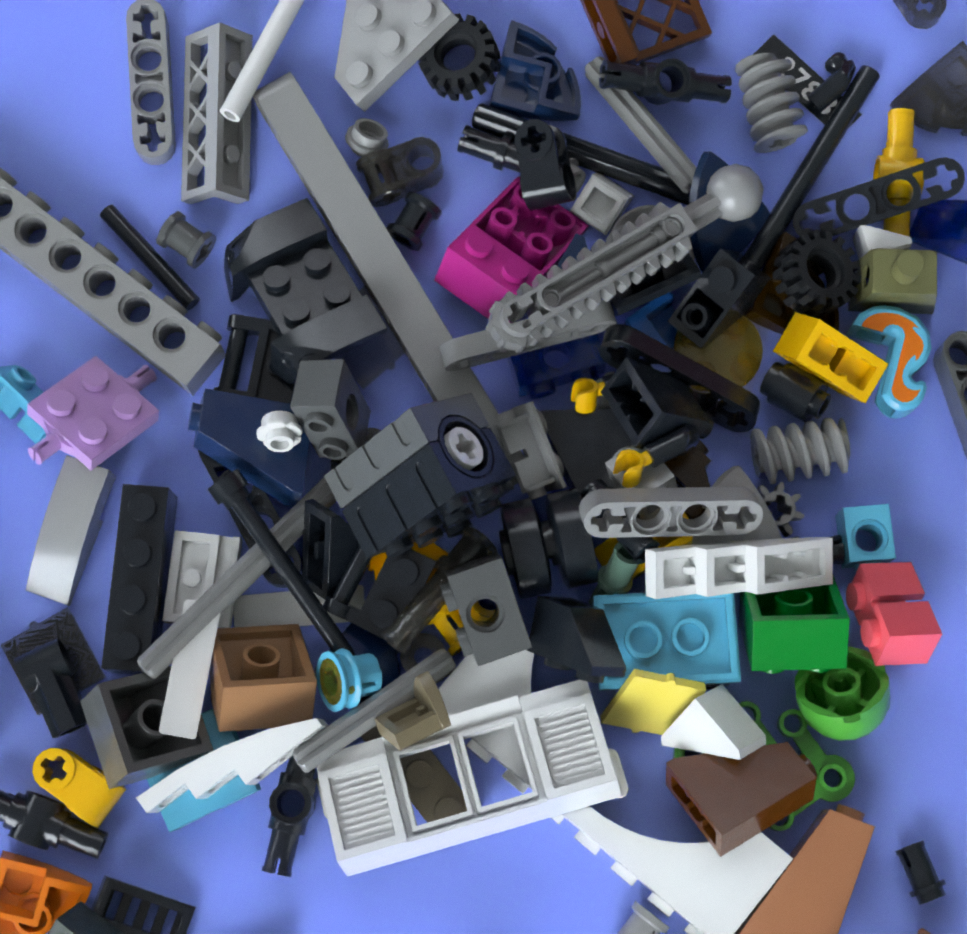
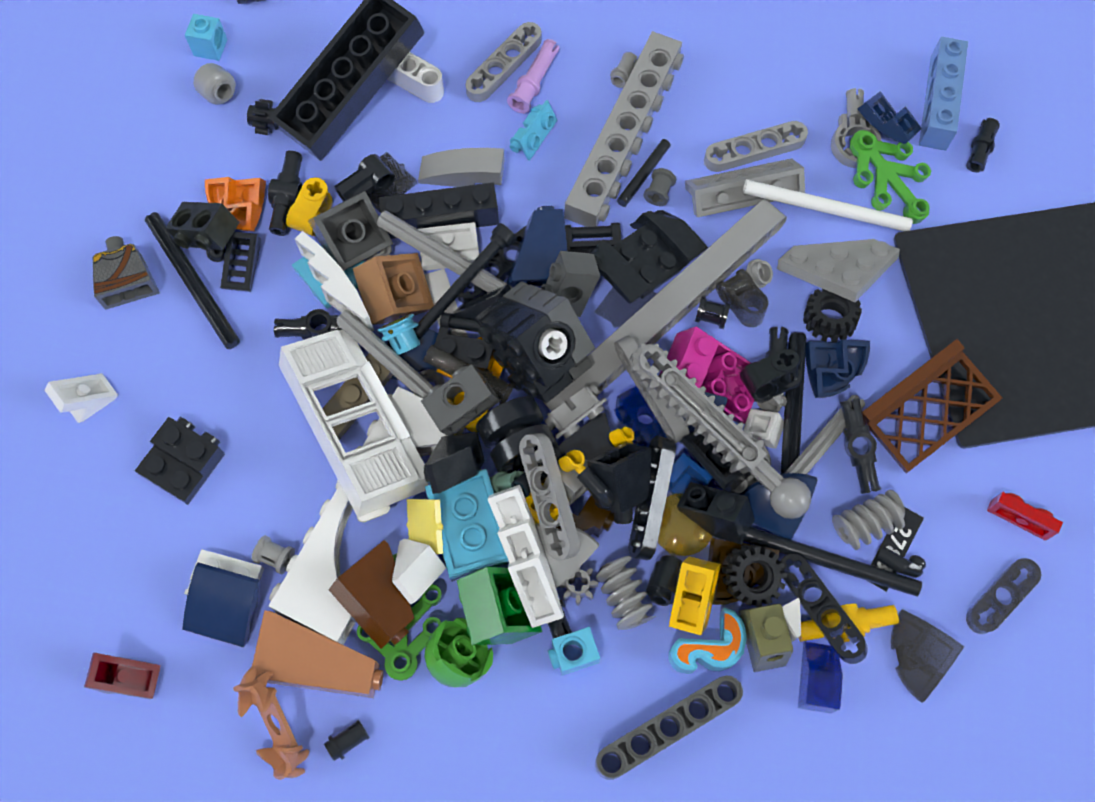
camera: 75 degrees right, 10 degrees down
(92, 413) = (534, 158): lavender plate -> none
(188, 682) = (379, 244): white sticker -> none
(279, 431) = (545, 254): white plate -> none
(416, 717) = (381, 375): dark tan tile -> none
(890, 626) = (517, 677): coral piece -> none

